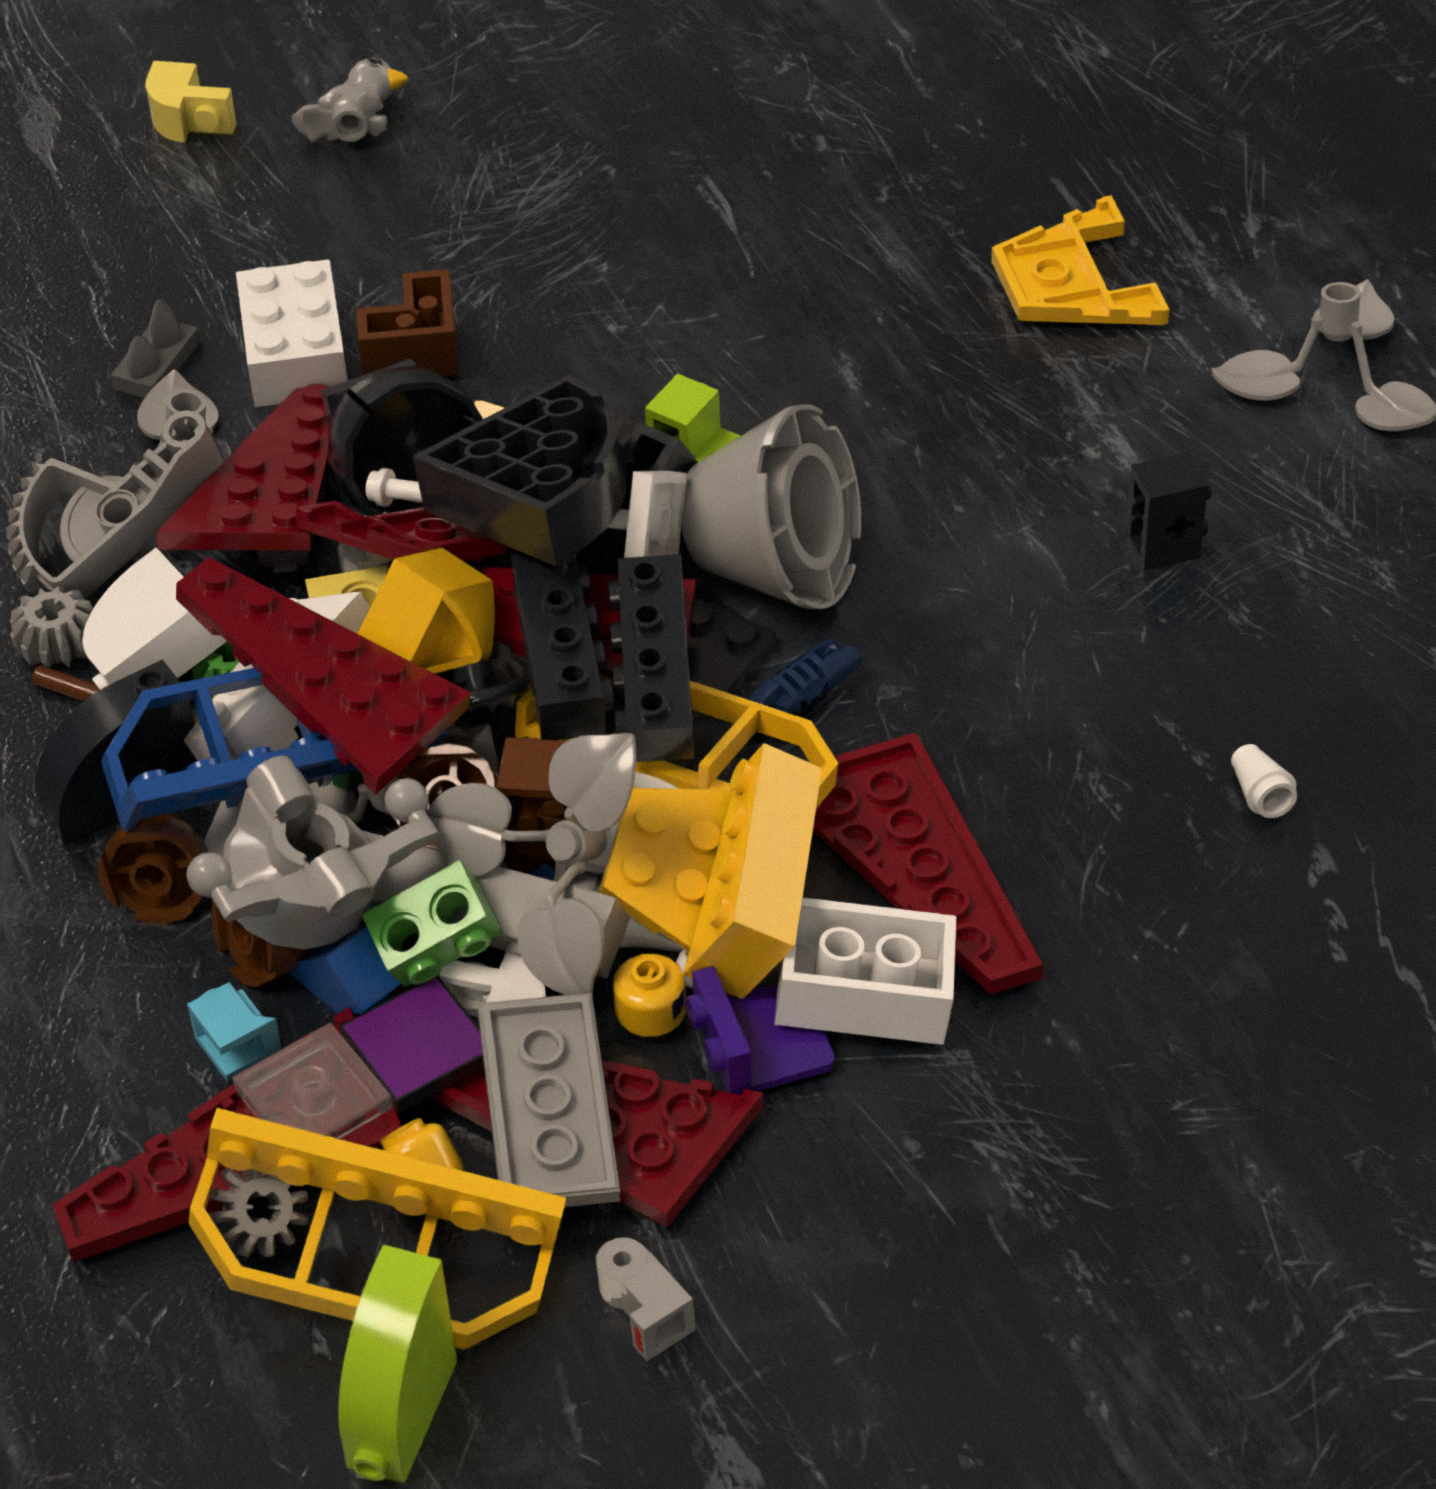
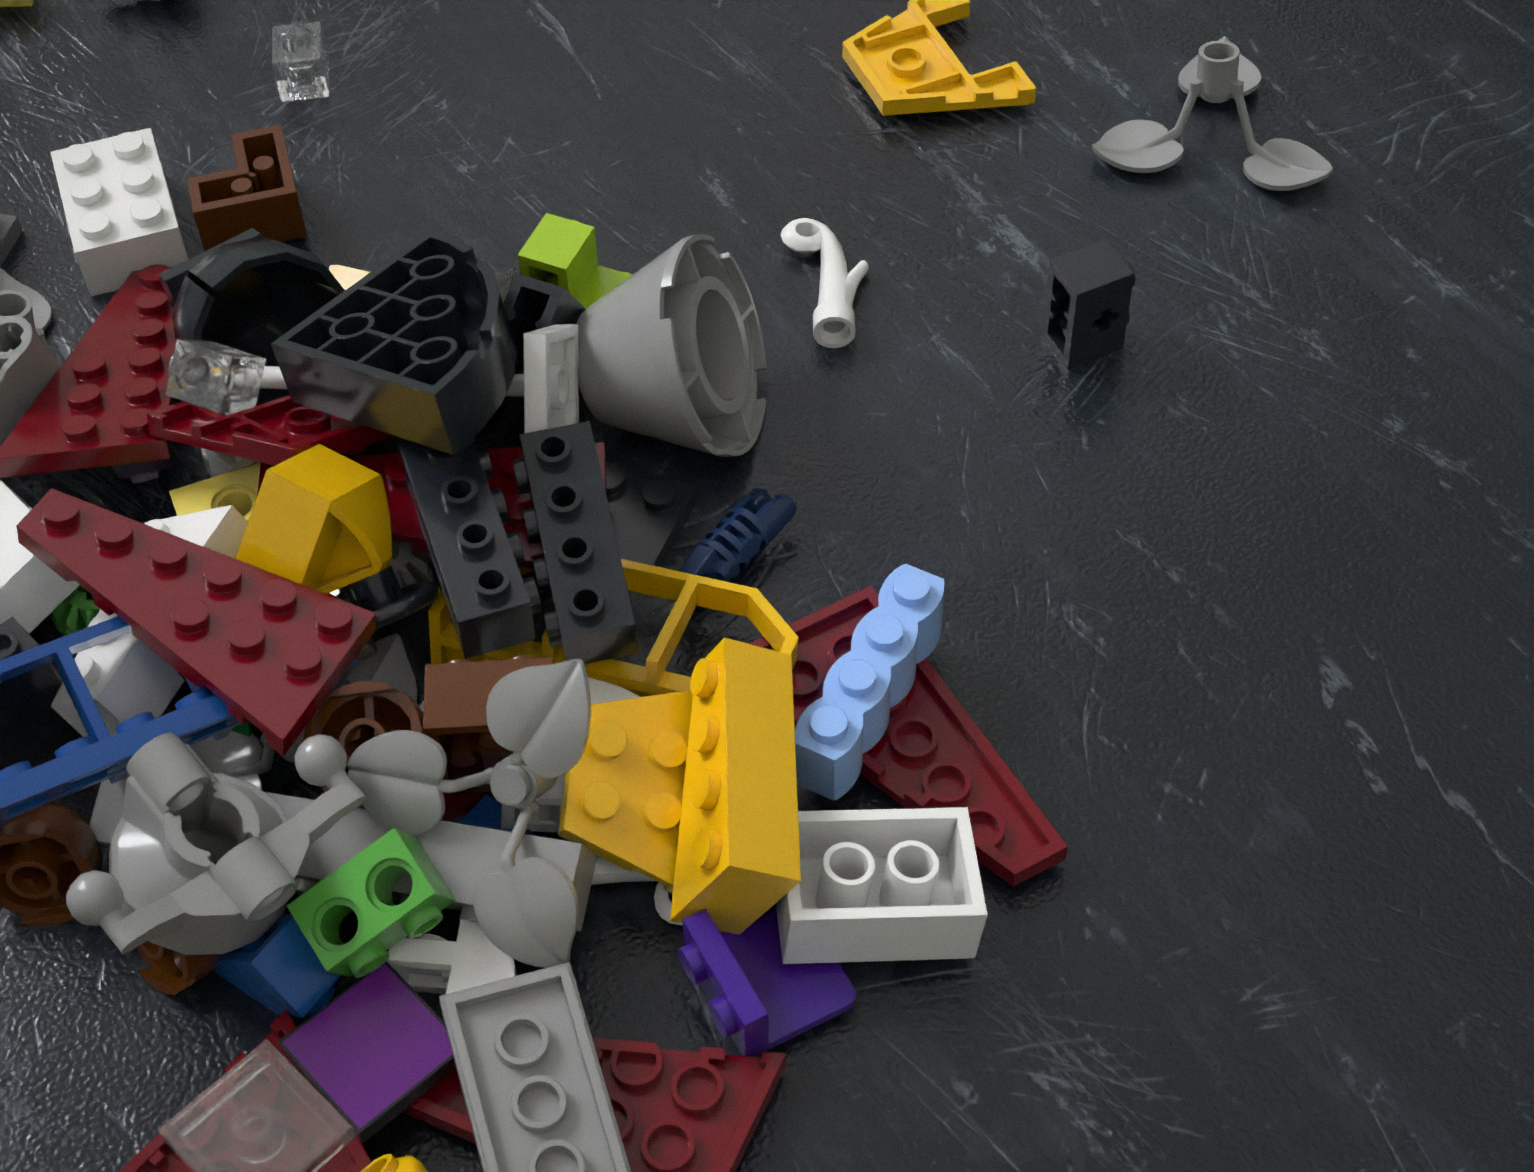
camera: 10 degrees left, 5 degrees up
(232, 1030) = (152, 1058): medium azure window -> none
(376, 483) = (214, 376): none -> clear brick
(476, 212) = (300, 61): none -> clear brick
(649, 995) = (634, 947): yellow head -> none
(893, 806) = (868, 682): none -> light blue brick
(933, 497) = (837, 288): none -> white plant
(1264, 783) = (1254, 595): white cone -> none

